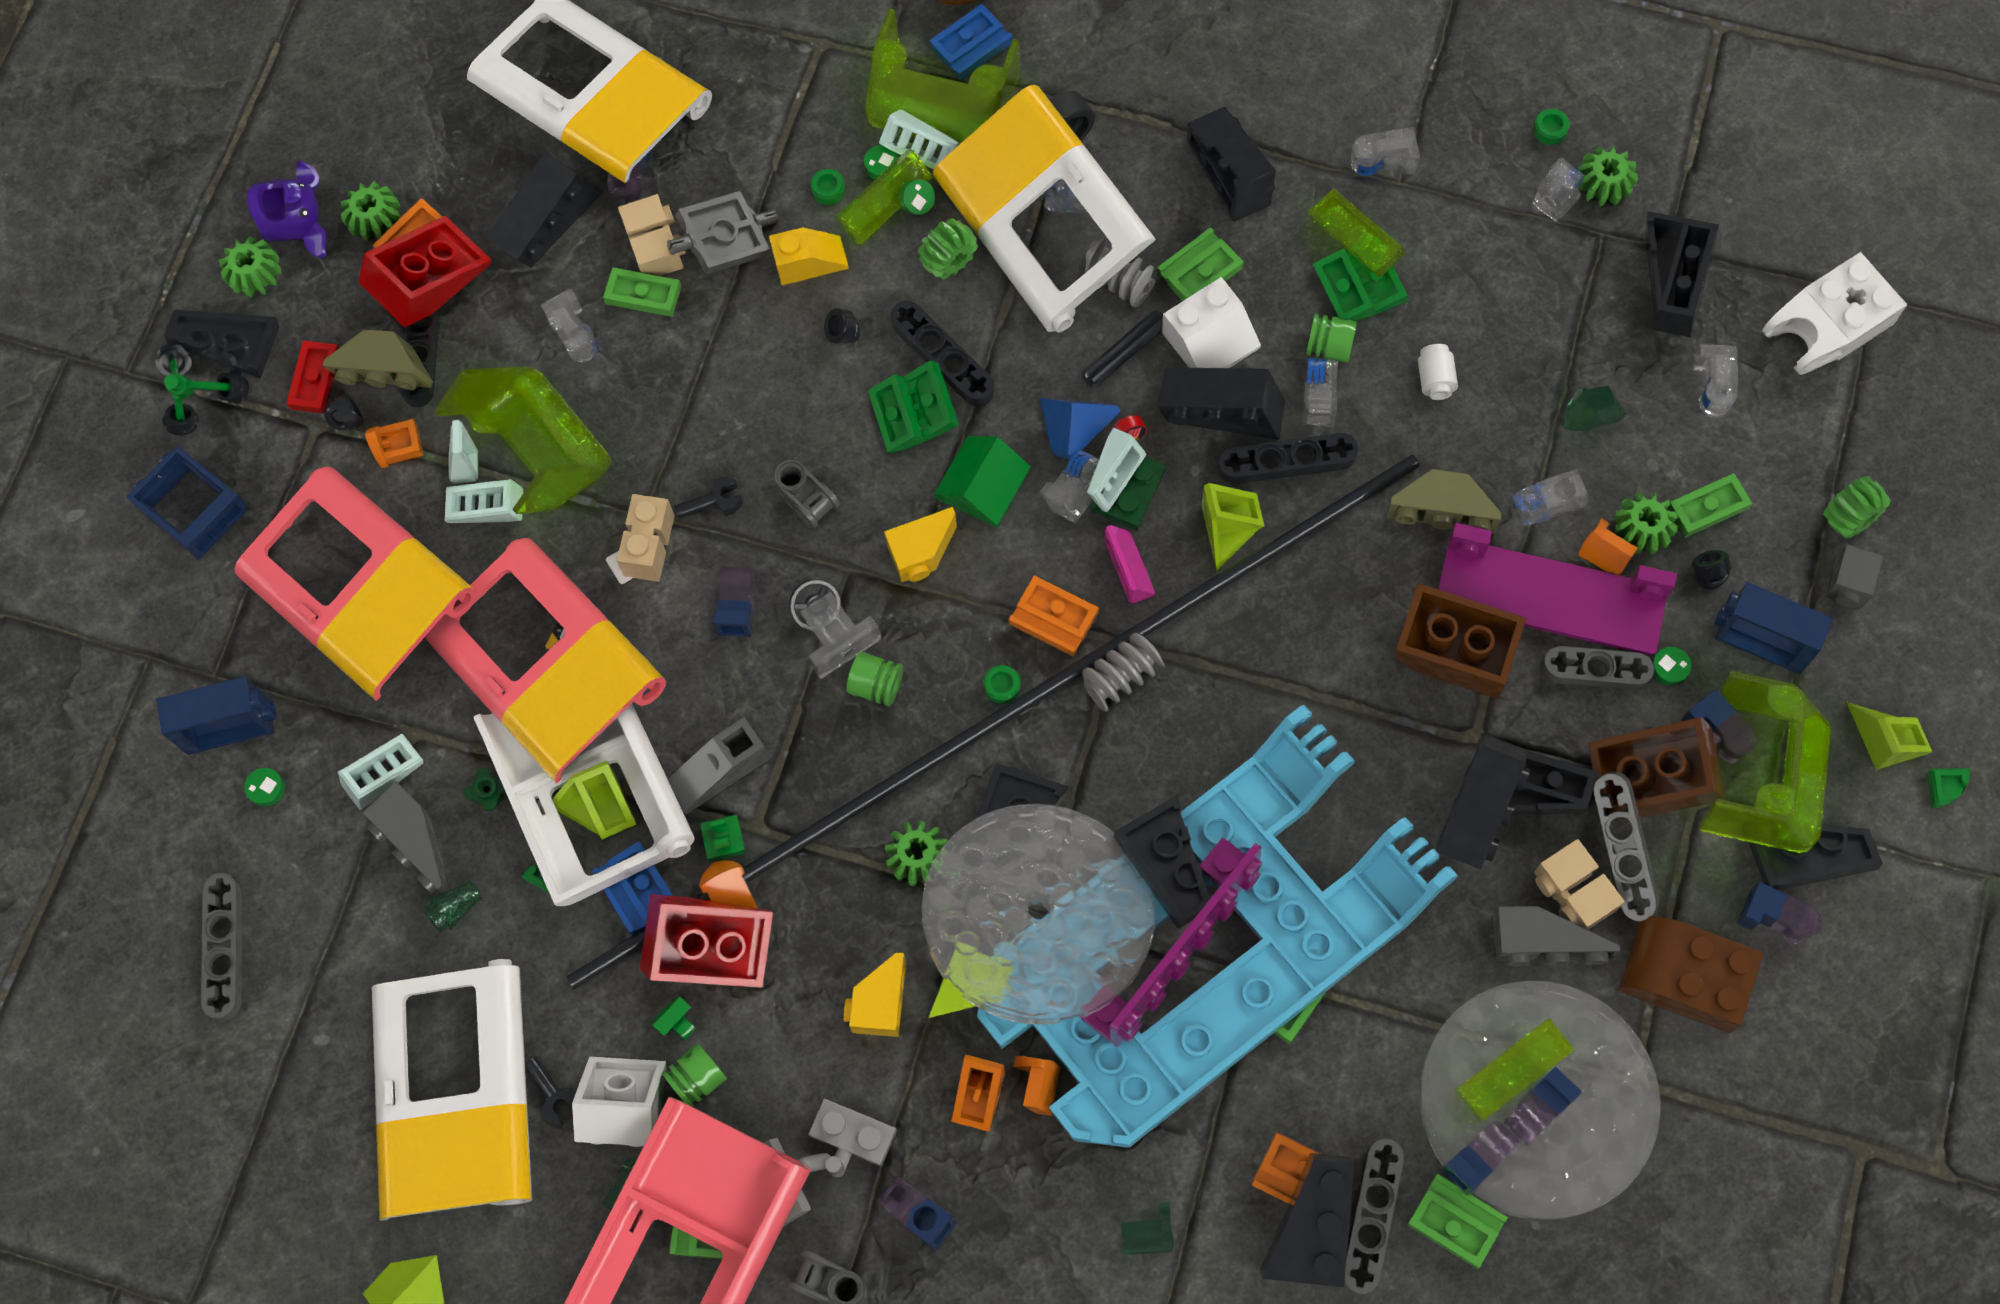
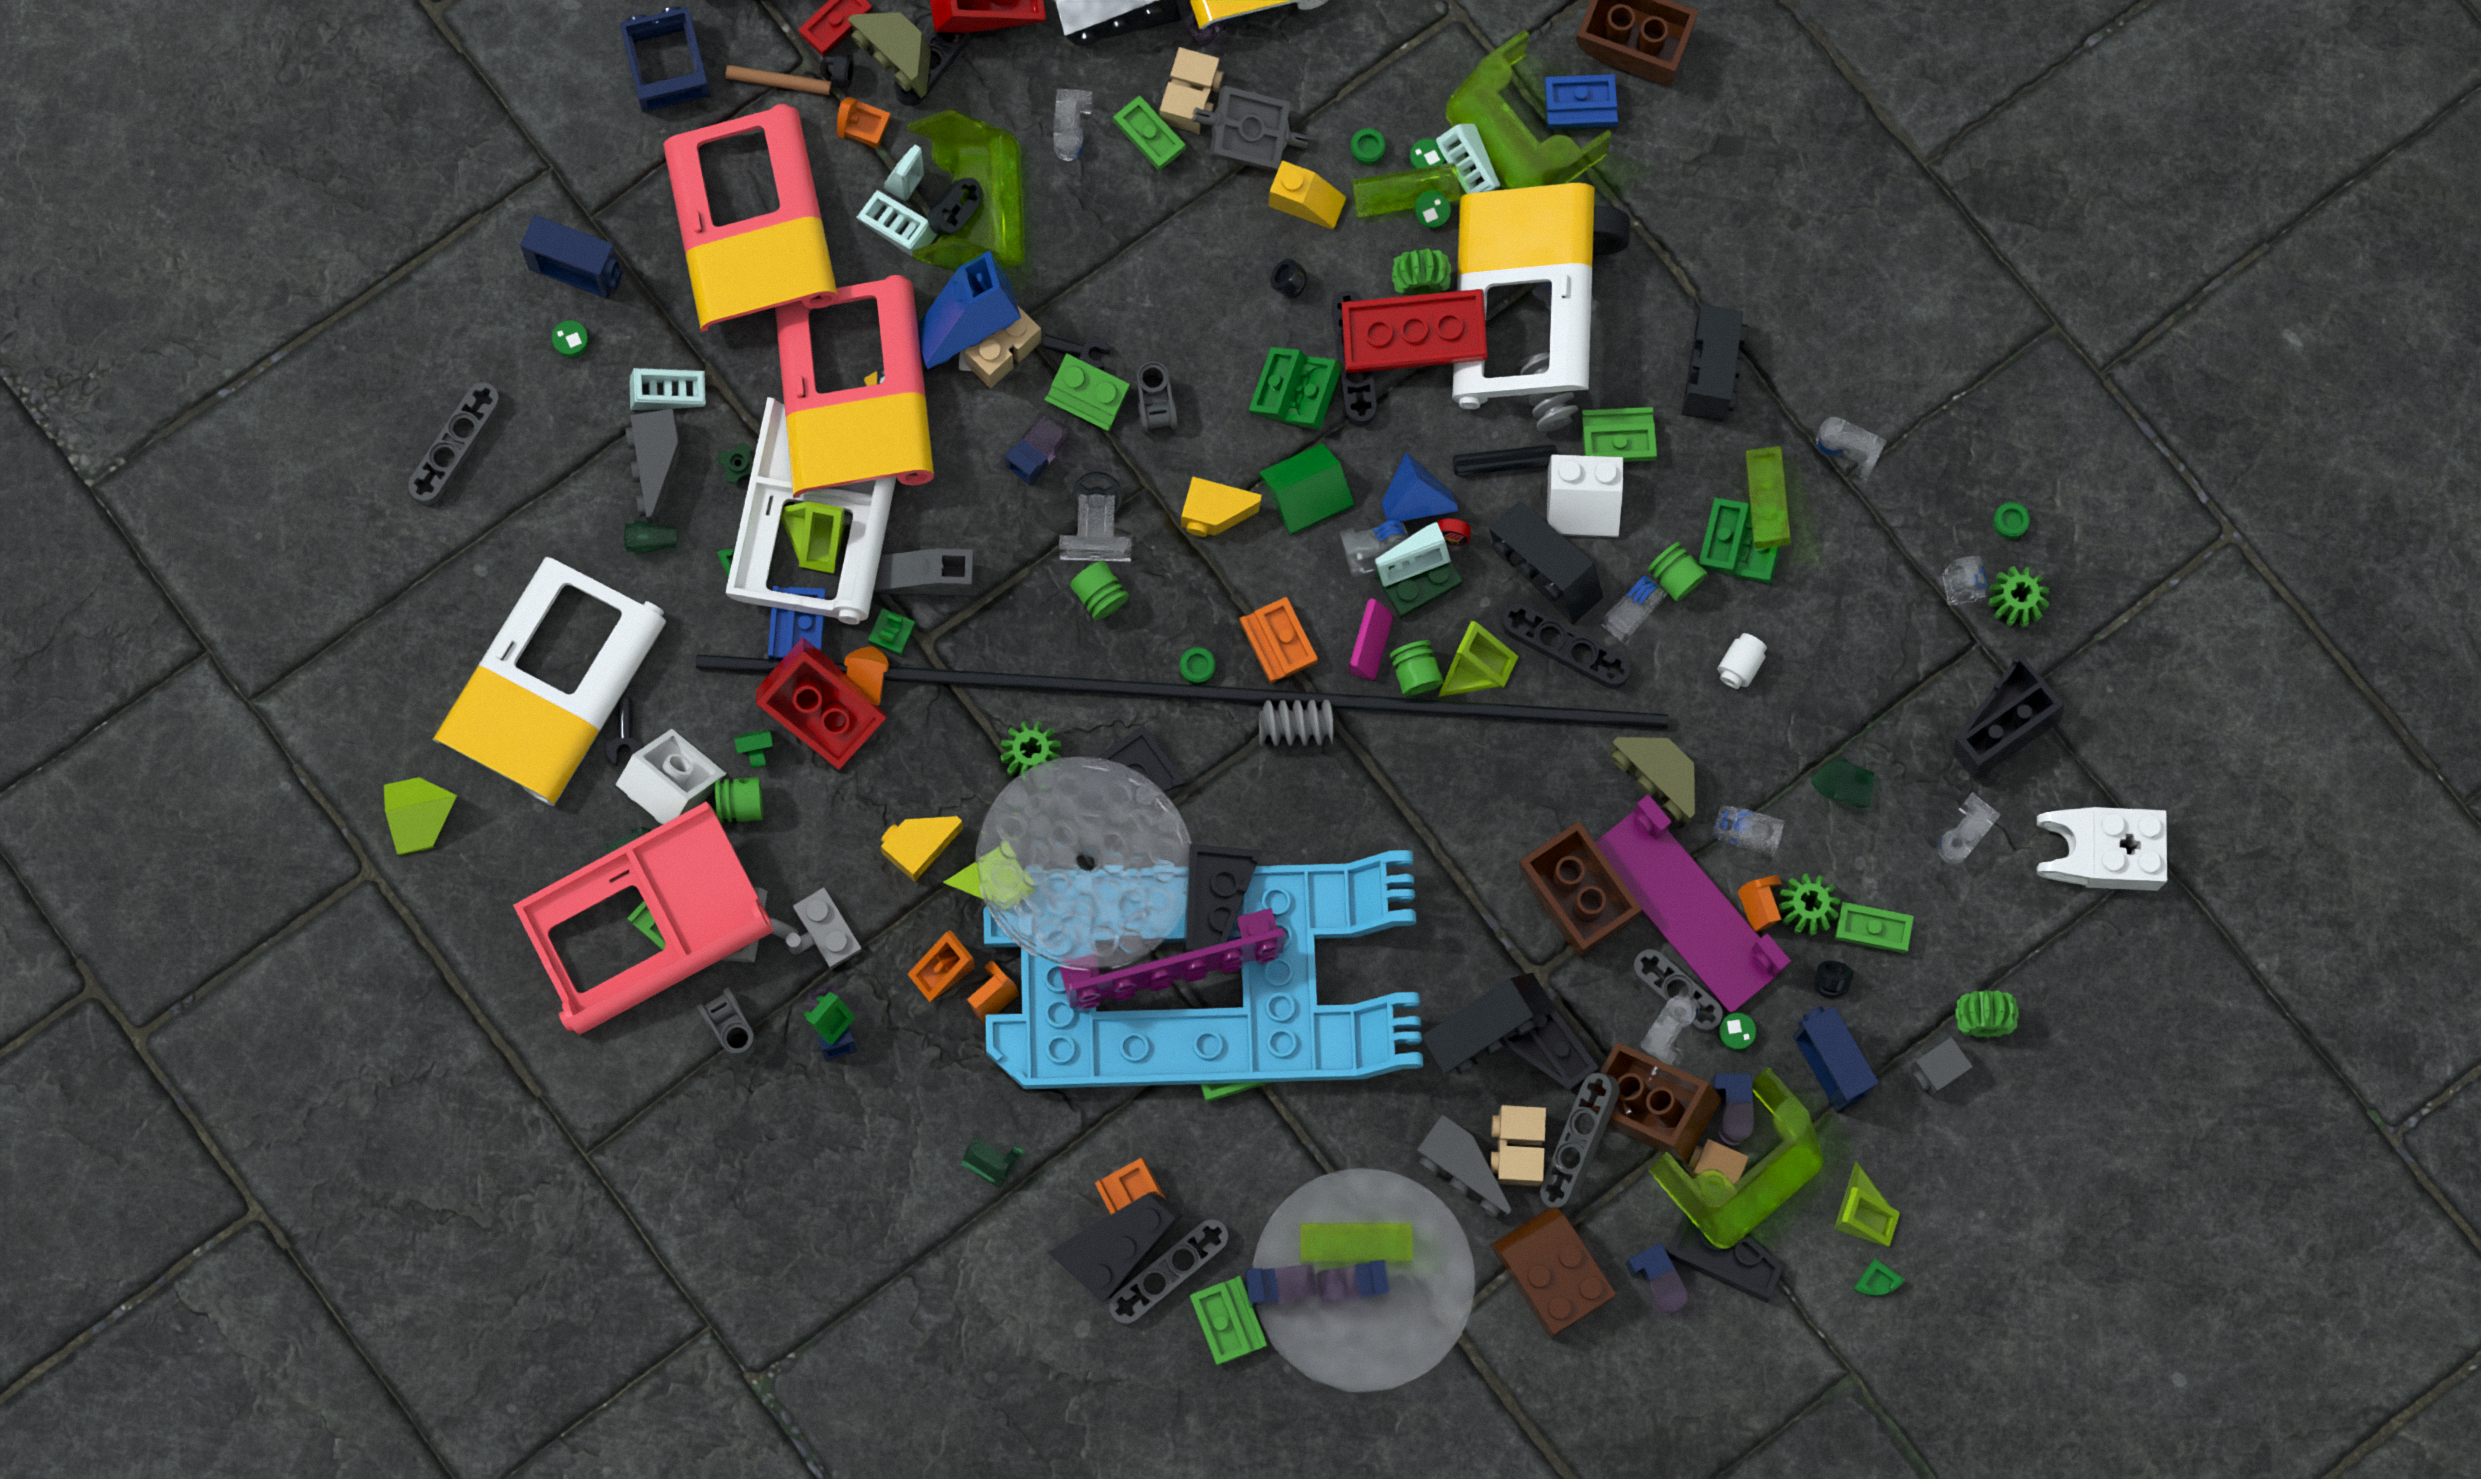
camera: 25 degrees right, 5 degrees up
(298, 456) = (778, 80): none -> medium nougat bar
(529, 455) = (960, 211): none -> black beam
(594, 526) = (967, 310): none -> blue slope
(744, 526) = (1088, 392): none -> bright green plate
(917, 1210) = (829, 1017): none -> green tile
(977, 294) = (1414, 331): none -> red tile
(1184, 558) = (1416, 668): none -> bright green piece
(1619, 699) = (1675, 1016): none -> clear leg
(1745, 780) = (1717, 1157): none -> medium nougat brick

